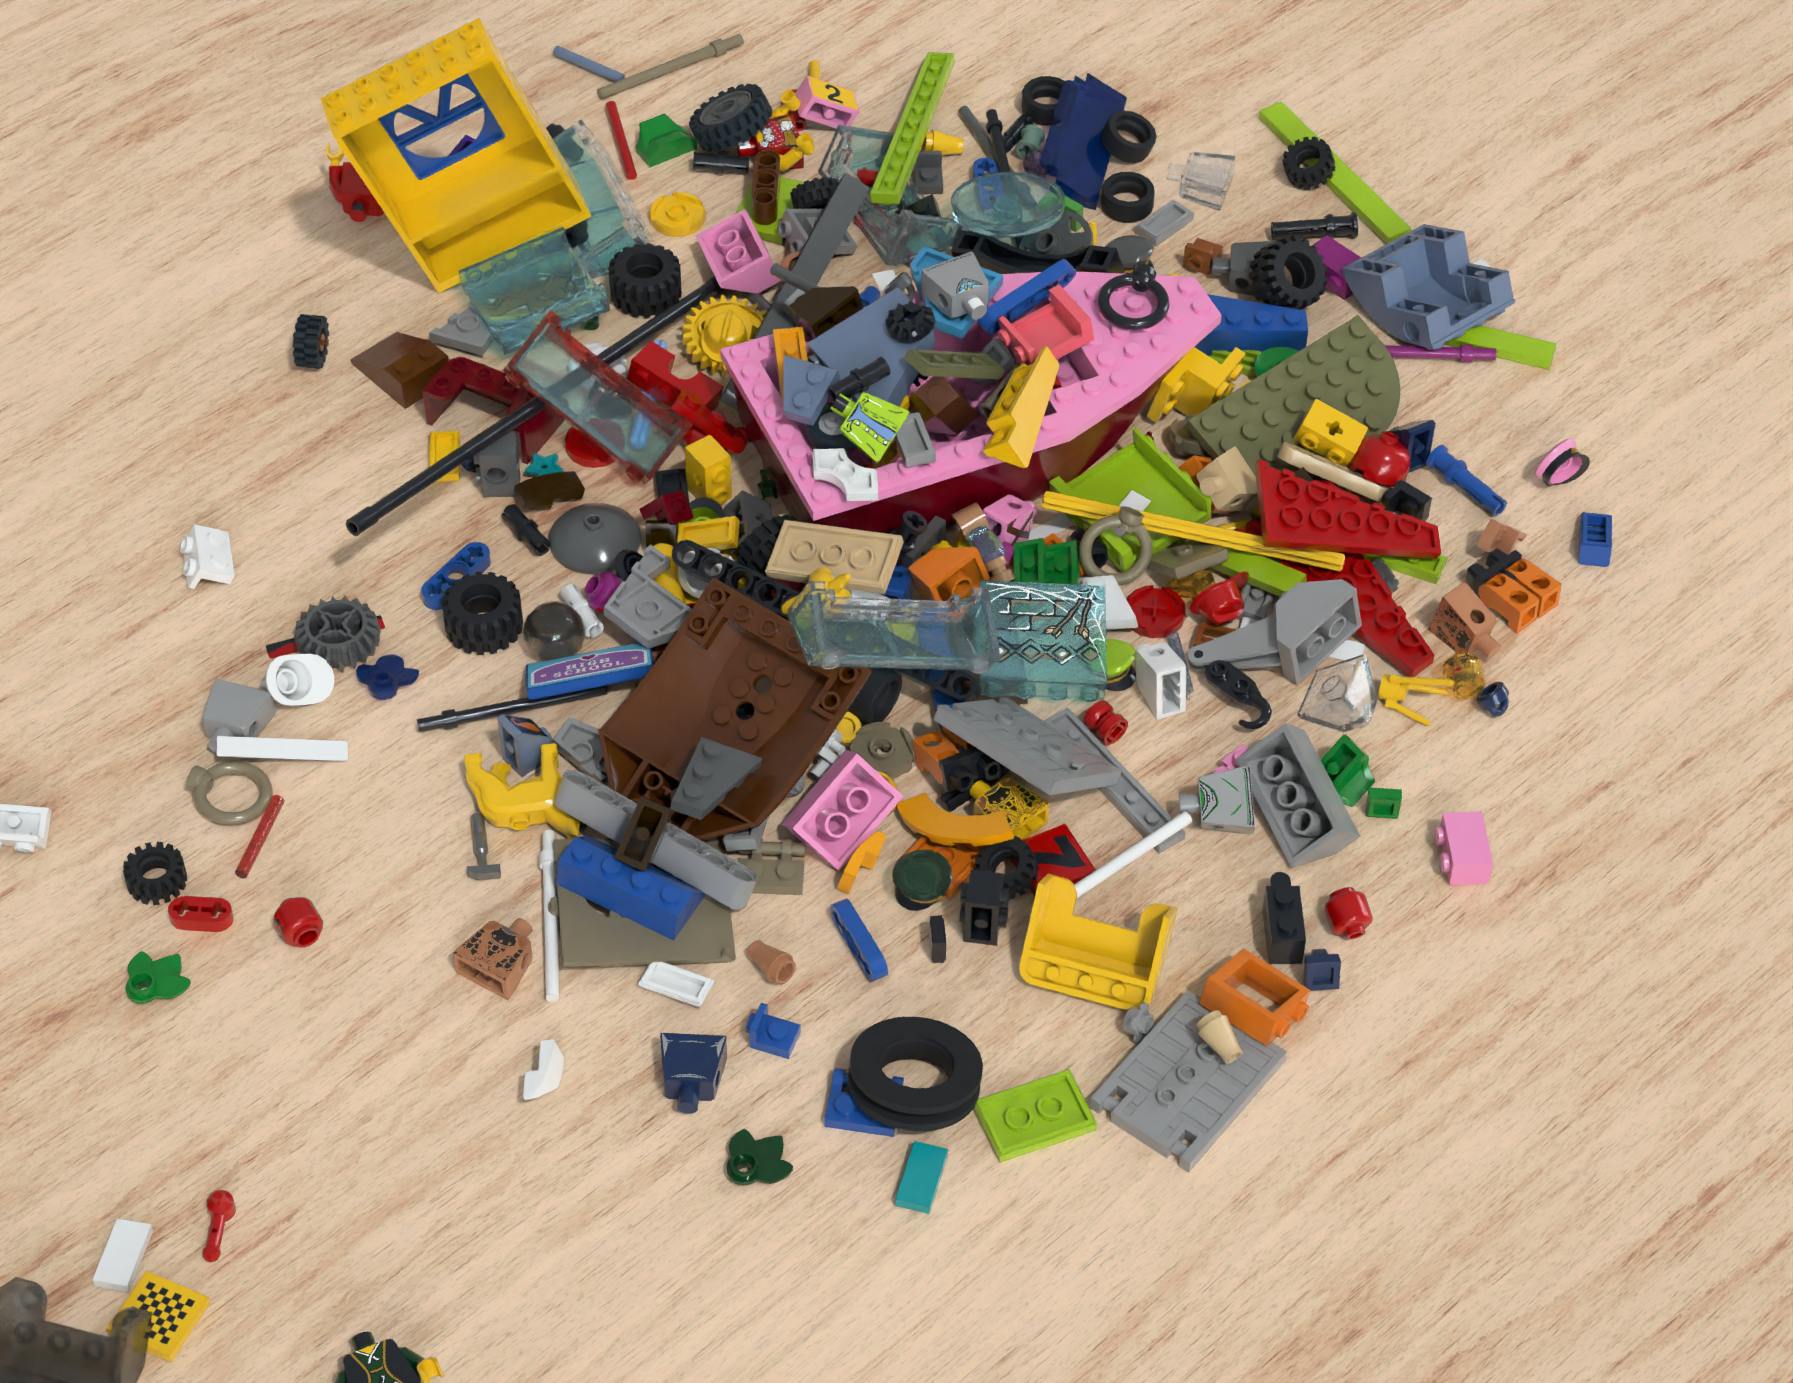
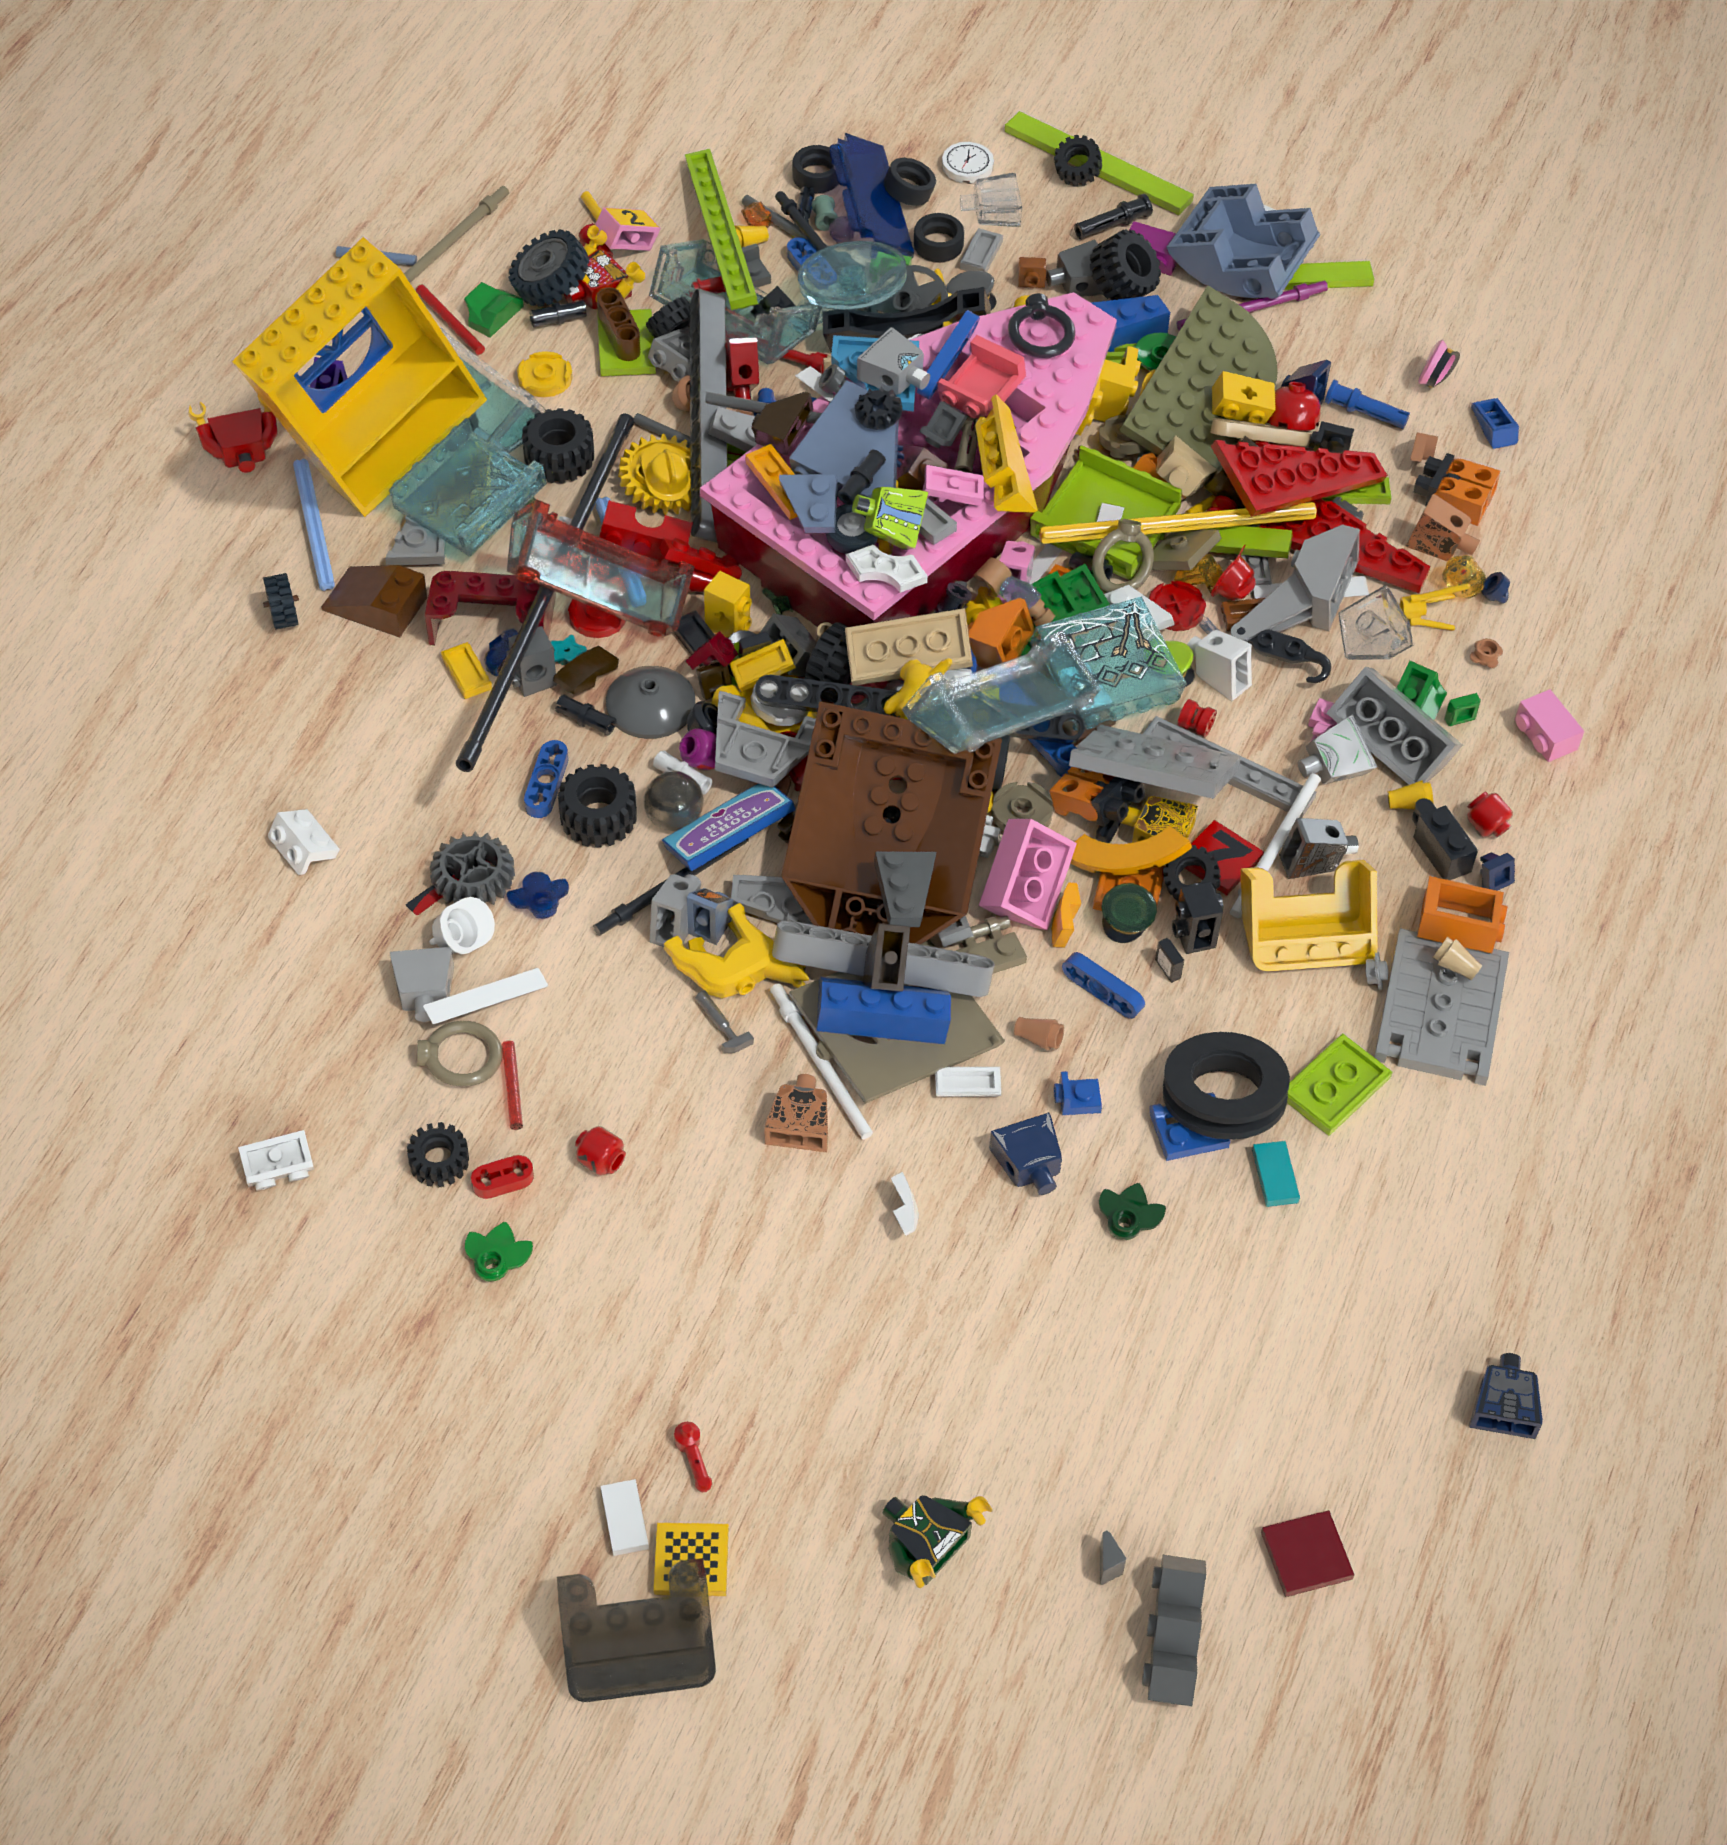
camera: 25 degrees left, 5 degrees up
(384, 293) = (313, 525): none -> light blue axle
(482, 729) = (668, 901): none -> light grey torso
(707, 511) = (753, 643): none -> black tile
(738, 255) = (633, 394): bright pink slope -> none
(857, 251) = (742, 360): none -> red torso
(952, 417) = (954, 485): none -> bright pink plate
(954, 364) = (929, 436): olive tile -> none
(963, 127) = (756, 215): none -> clear orange piece
(1147, 880) = (1315, 847): none -> dark grey torso
(1201, 134) = (967, 162): none -> white tile
(1289, 864) = (1408, 795): none -> yellow cone
(1445, 757) = (1486, 652): none -> nougat plate

